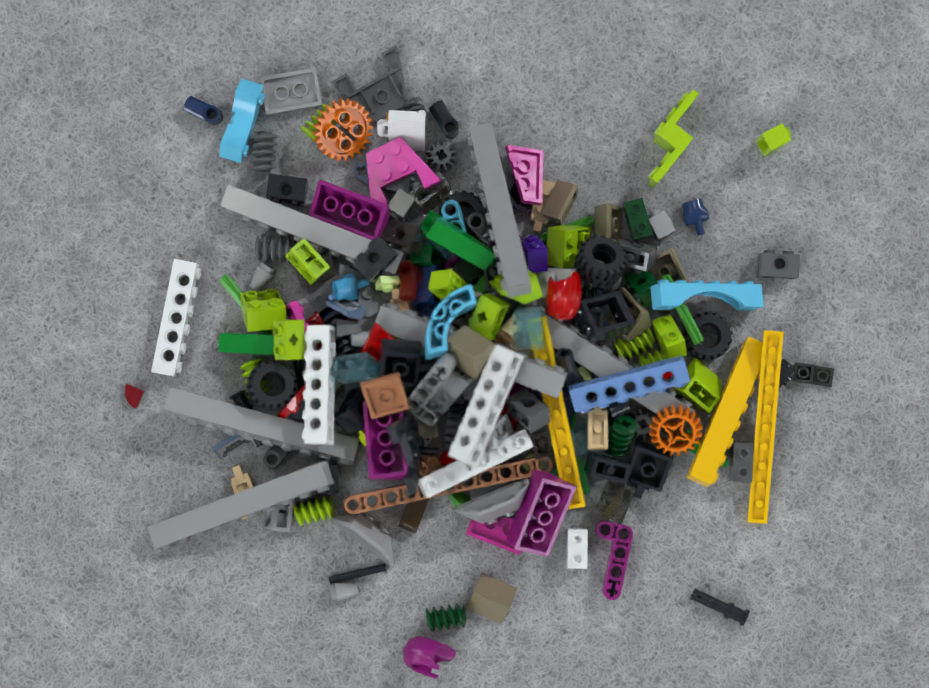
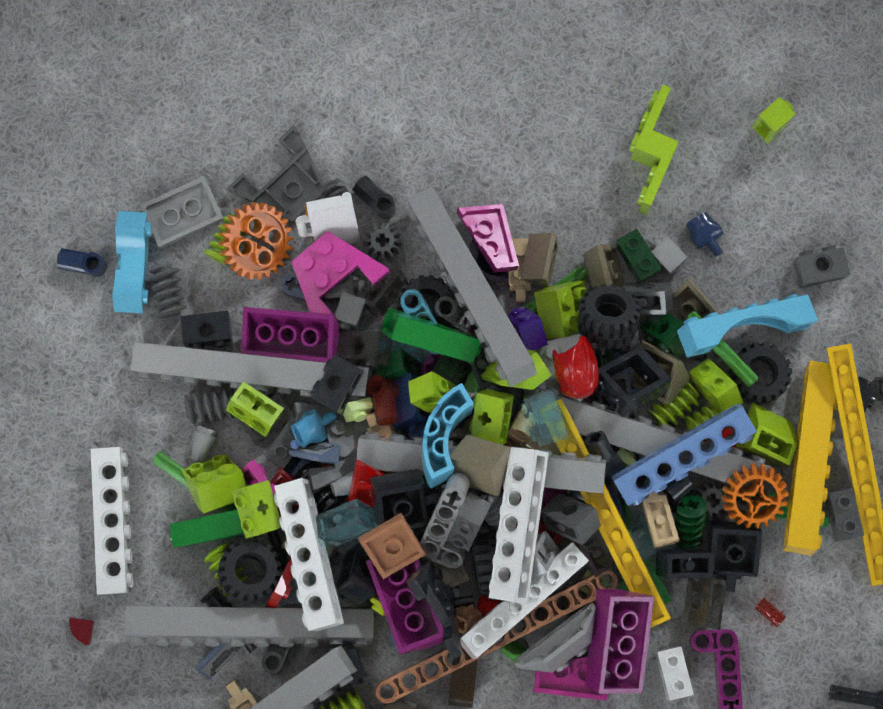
camera: 10 degrees left, 5 degrees down
(663, 521) = (770, 612): none -> clear red pin

